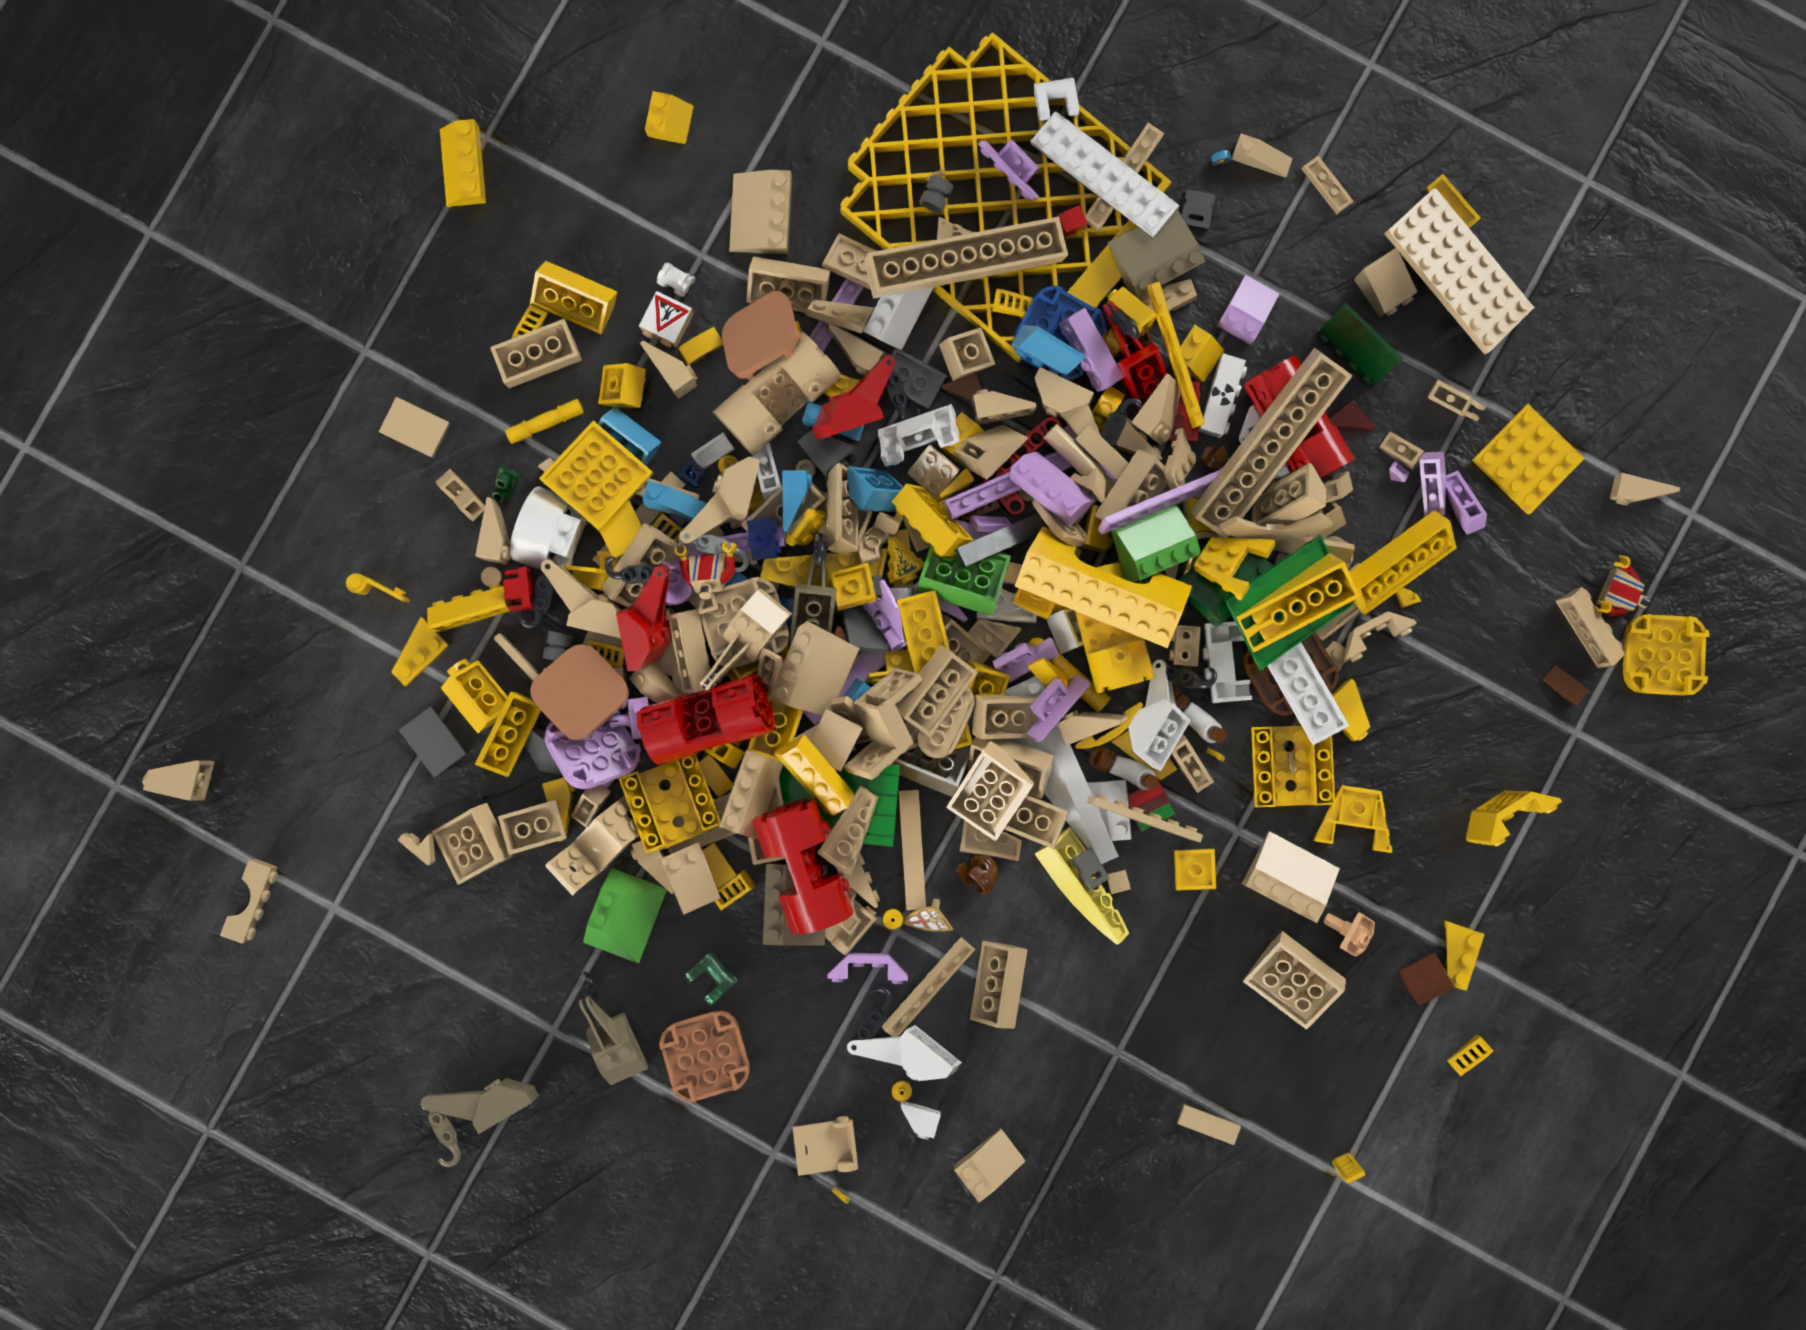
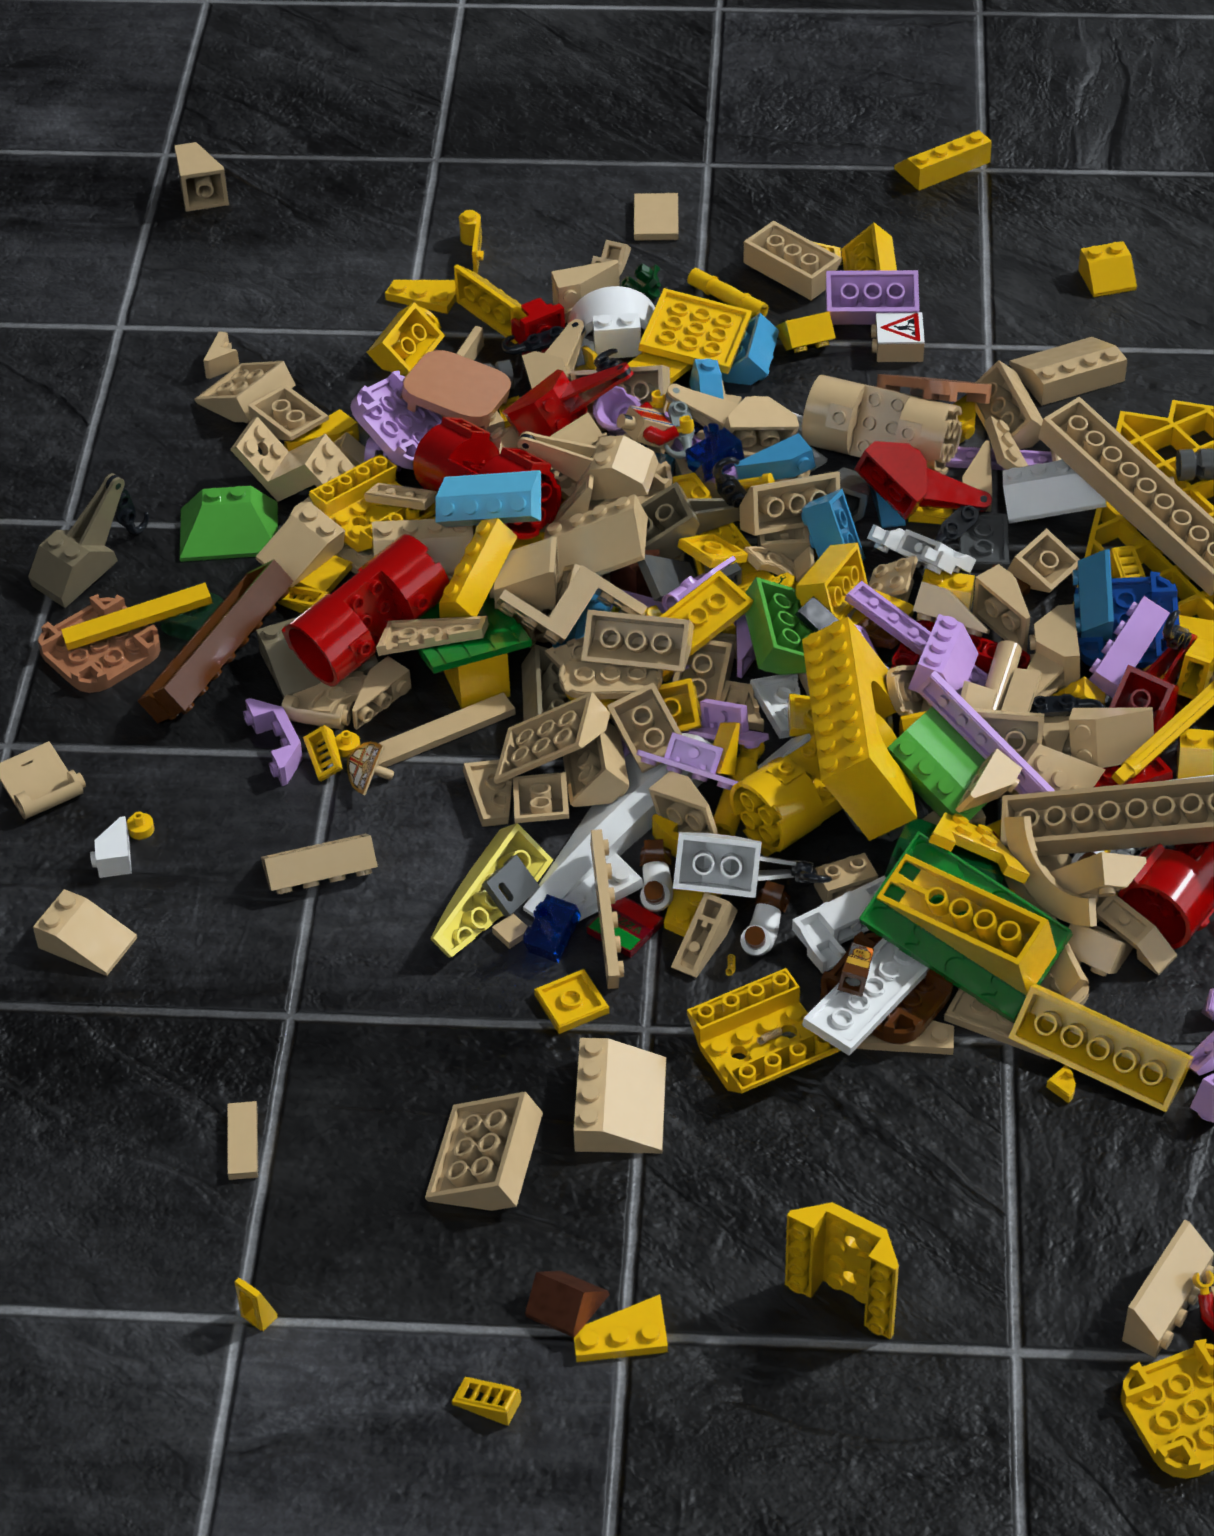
camera: 70 degrees right, 40 degrees down
(258, 877) = (121, 264): tan arch -> none
(433, 742) = (337, 332): dark grey tile -> none
(508, 734) = (373, 359): yellow slope -> none
(619, 318) = (859, 295): none -> lavender slope
(675, 278) = (946, 329): white piece -> none
(677, 375) = (843, 350): tan slope -> none
(677, 783) = (400, 496): none -> tan tile
(700, 346) = (888, 366): yellow slope -> none
(701, 1023) = (136, 616): none -> yellow tile
(758, 976) = (216, 642): none -> reddish brown piece
(763, 741) = (473, 498): none -> medium azure slope
(890, 945) = (317, 737): none -> yellow slope
(913, 1050) = (196, 799): white slope -> none
(928, 987) = (280, 799): tan plate -> none
(980, 874) = (444, 791): reddish brown helmet -> none
(1139, 858) = (551, 928): none -> clear blue brick
(1187, 522) = (991, 781): none -> tan slope
(1292, 690) = (857, 967): none -> reddish brown leg
(1351, 706) = (874, 1071): yellow slope -> none
(1356, 934) = (583, 1188): light nougat piece -> none
(1360, 809) = (752, 1134): yellow wing -> none
(1396, 623) = (957, 1034): tan slope -> none
(1565, 685) = (1070, 1307): reddish brown slope -> none

